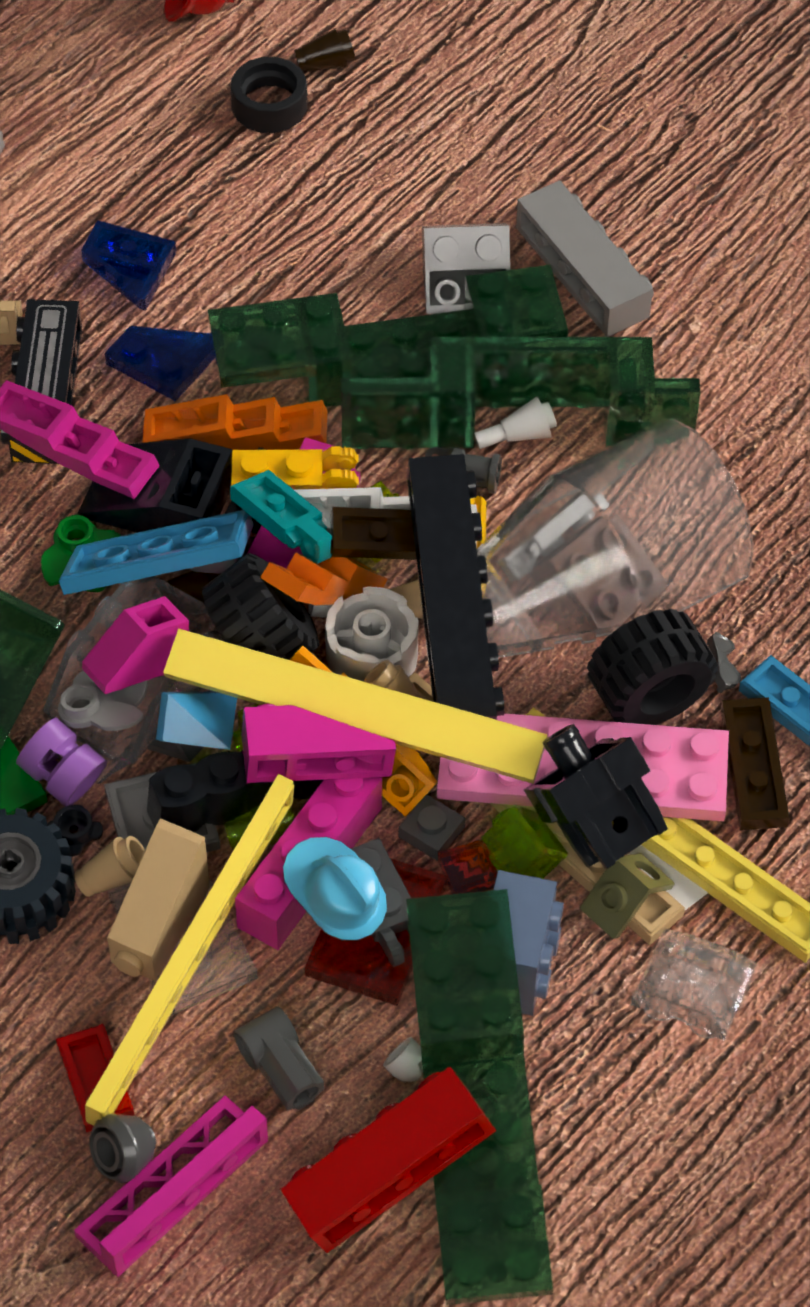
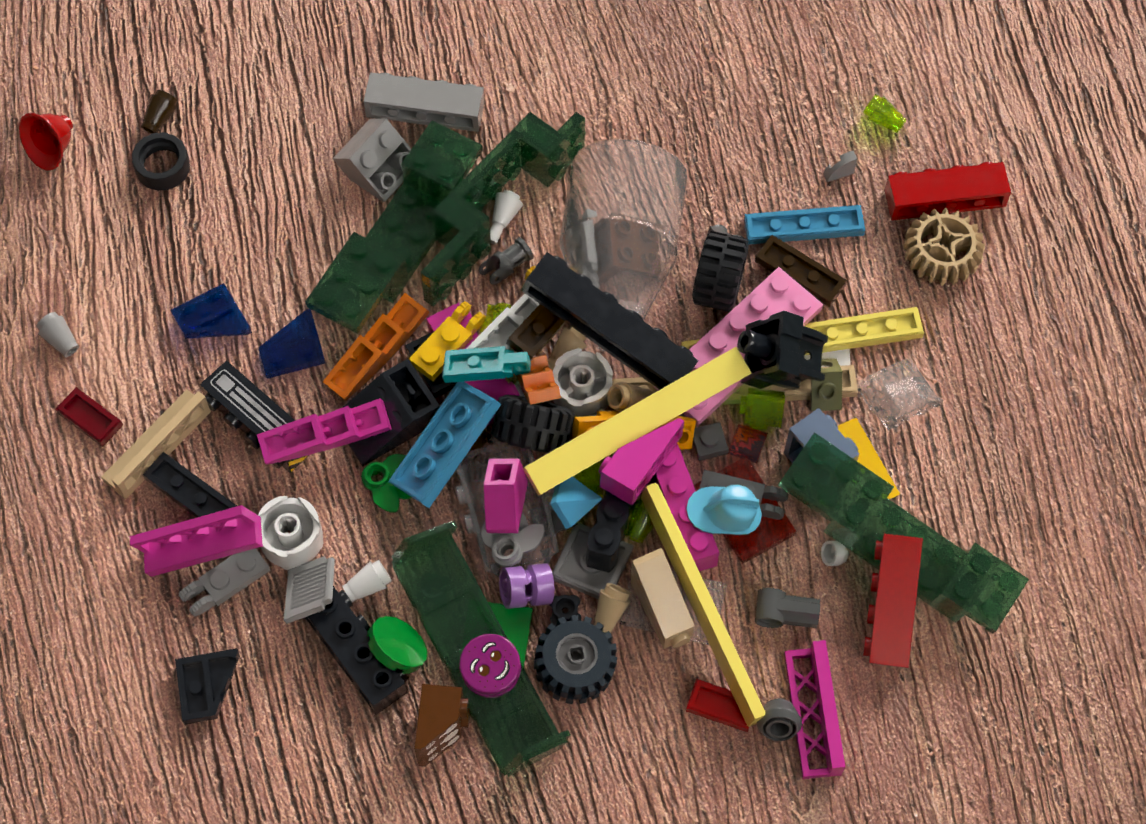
camera: 50 degrees left, 10 degrees up
(573, 1016) = (867, 455): none -> yellow sticker

